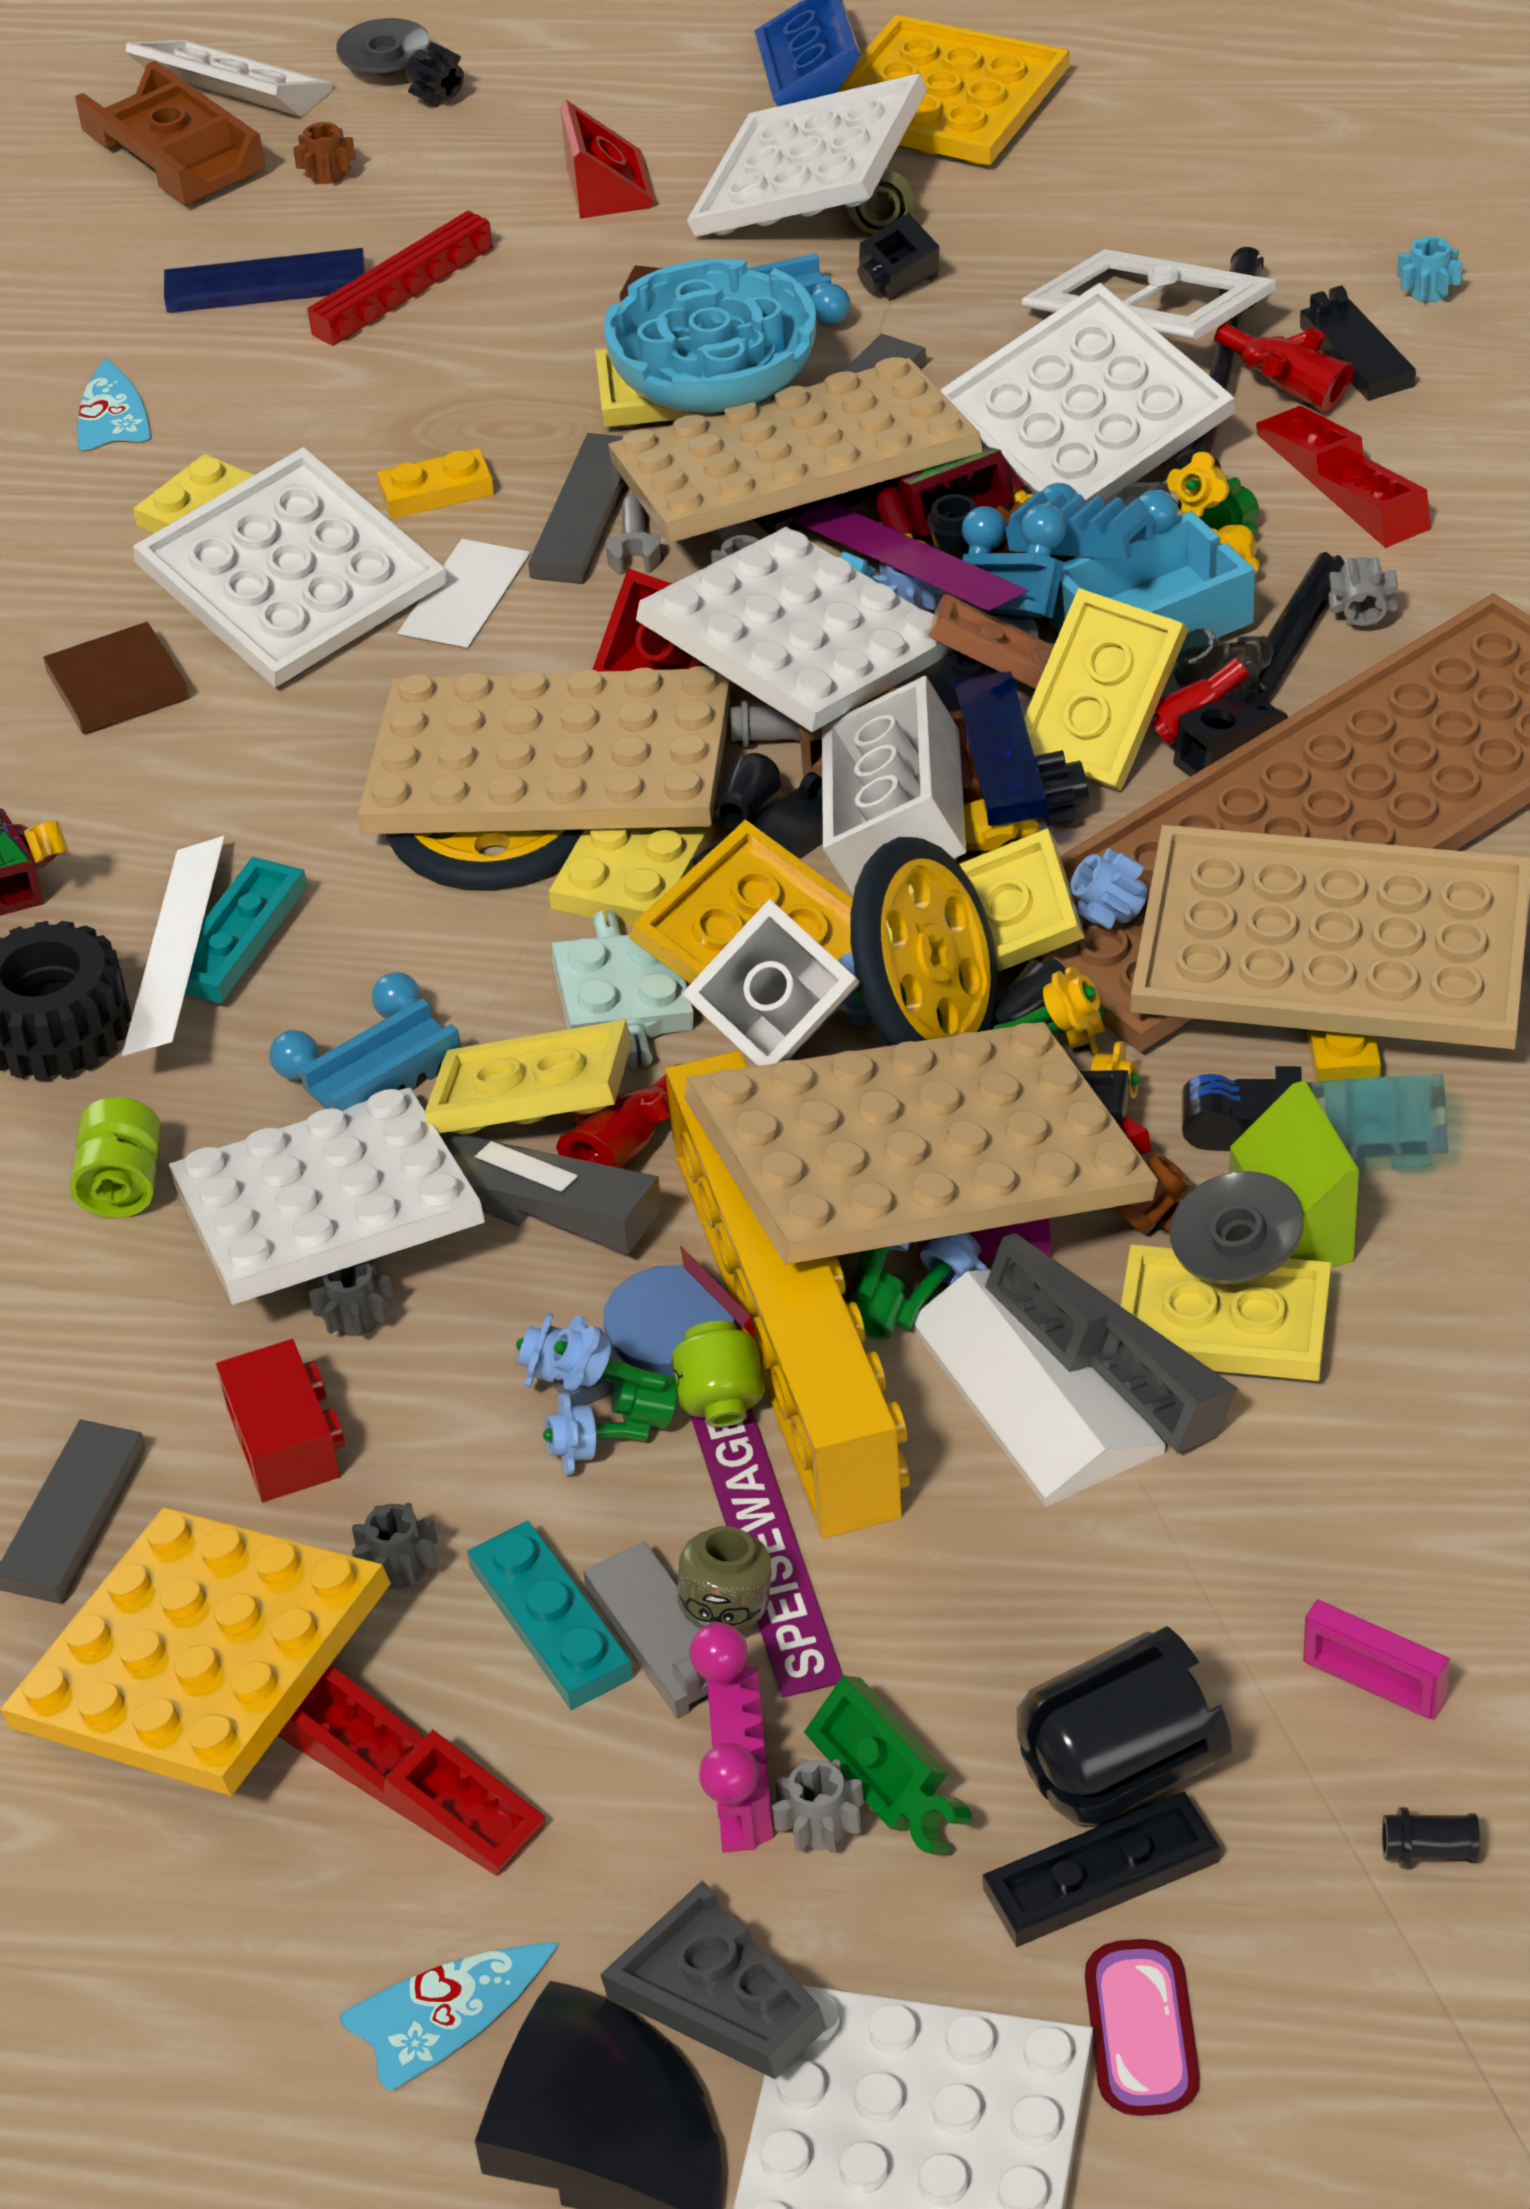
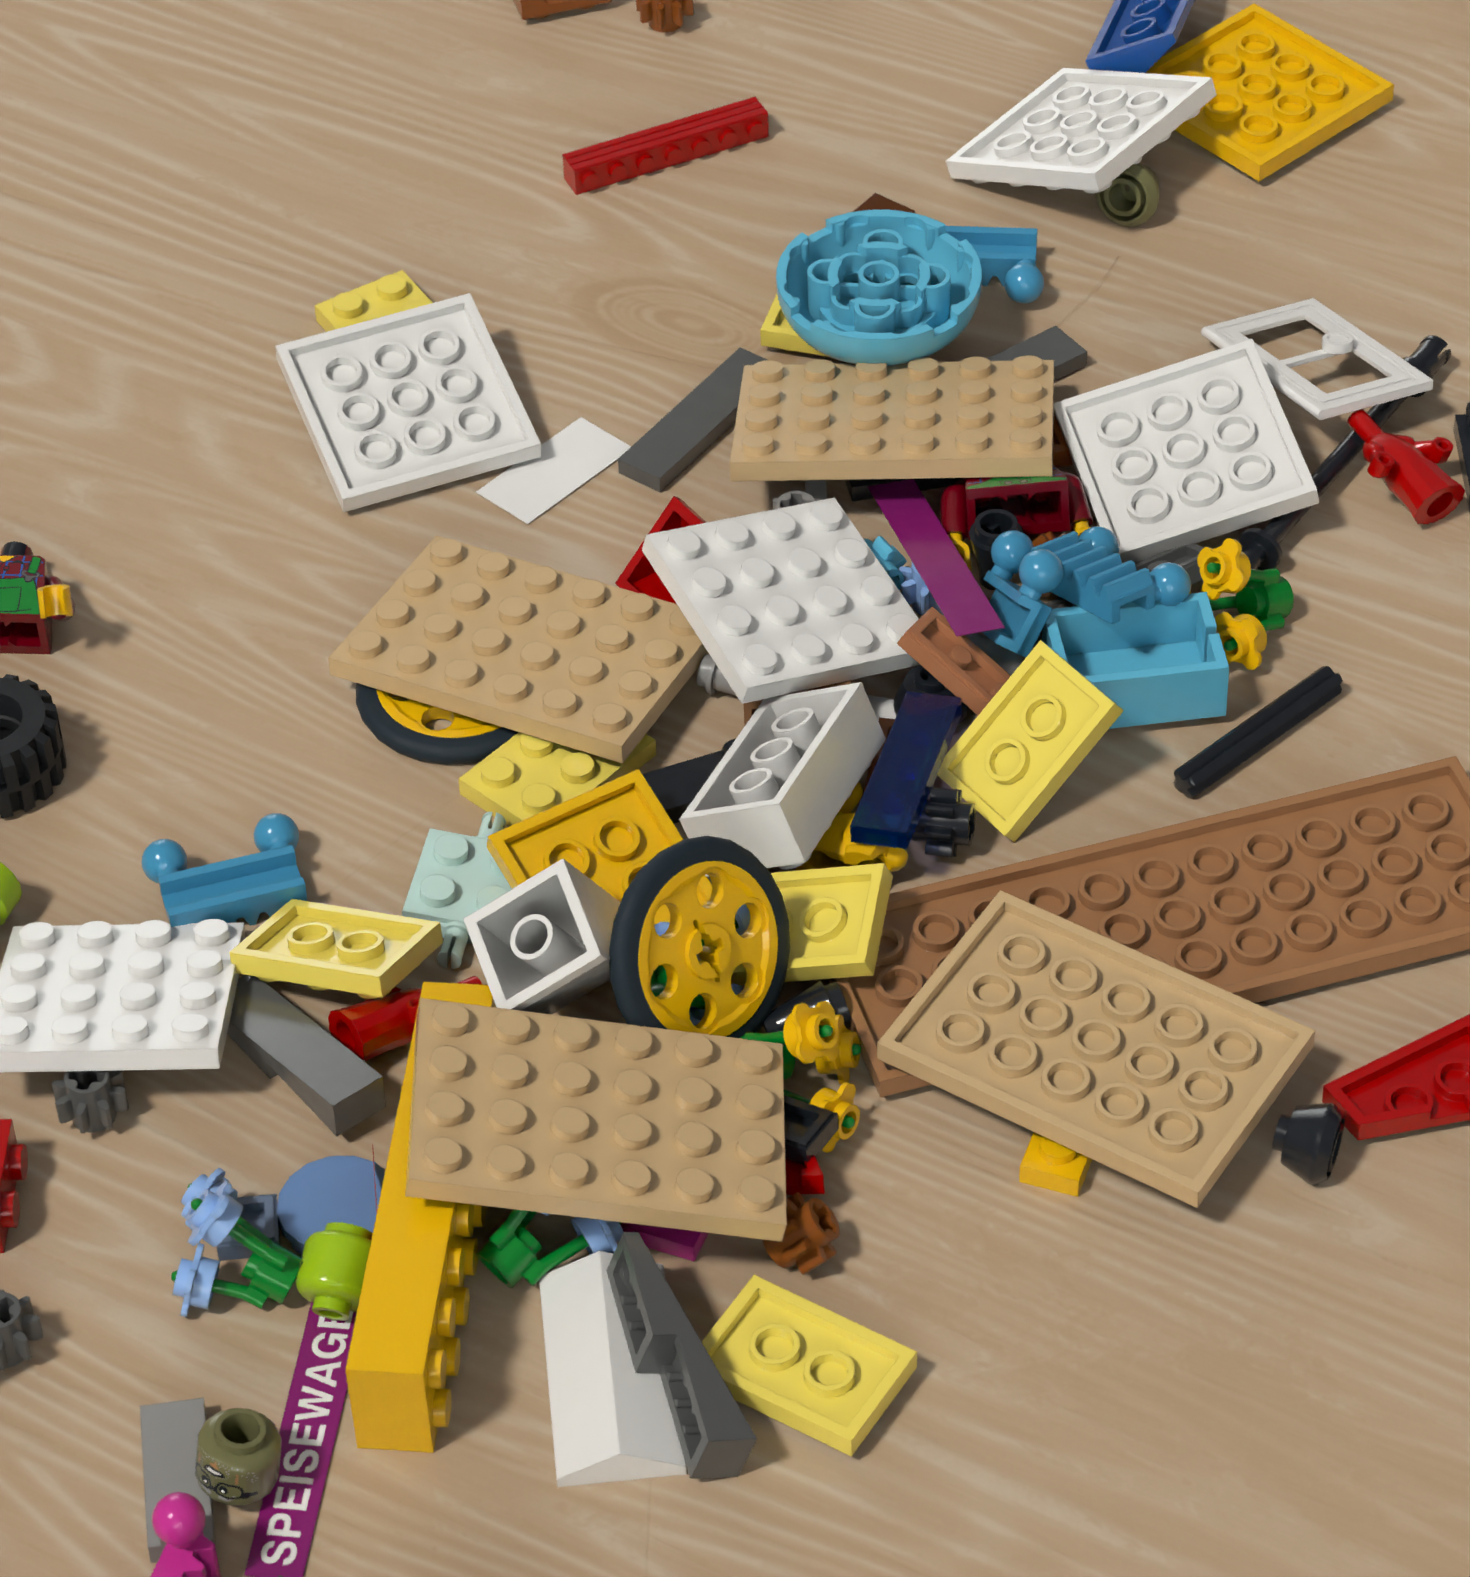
camera: 20 degrees right, 0 degrees up
(111, 410) = (354, 203): medium azure sticker -> none
(115, 677) = (216, 461): reddish brown tile -> none
(173, 947) = (120, 729): white sticker -> none
(242, 926) = (183, 730): teal plate -> none
(261, 280) = (546, 112): clear blue tile -> none
(435, 483) = (585, 356): yellow plate -> none
(526, 1166) = (289, 1028): white sticker -> none
(550, 1615) = (97, 1434): teal plate -> none
(602, 166) = (901, 84): red slope -> none
(633, 540) = (717, 467): light grey bar -> none
(748, 788) = (677, 737): black cone -> none
(897, 258) = (1109, 254): black brick -> none
(1108, 888) = (917, 936): light blue gear -> none
(1194, 696) = (1101, 785): red cone -> none
(1204, 656) = (1159, 750): clear smoke plate -> none
(1221, 728) = (1129, 810): black leg -> none
(1222, 1109) = (931, 1186): black leg -> none
(1234, 1208) = (838, 1292): dark grey dish -> none
(1306, 1153) = (917, 1271): lime slope -> none
(1334, 463) = (1404, 603): red slope -> none
(1363, 591) = (1336, 717): light grey gear -> none
(1387, 1117) = (1036, 1230): clear light blue slope -> none

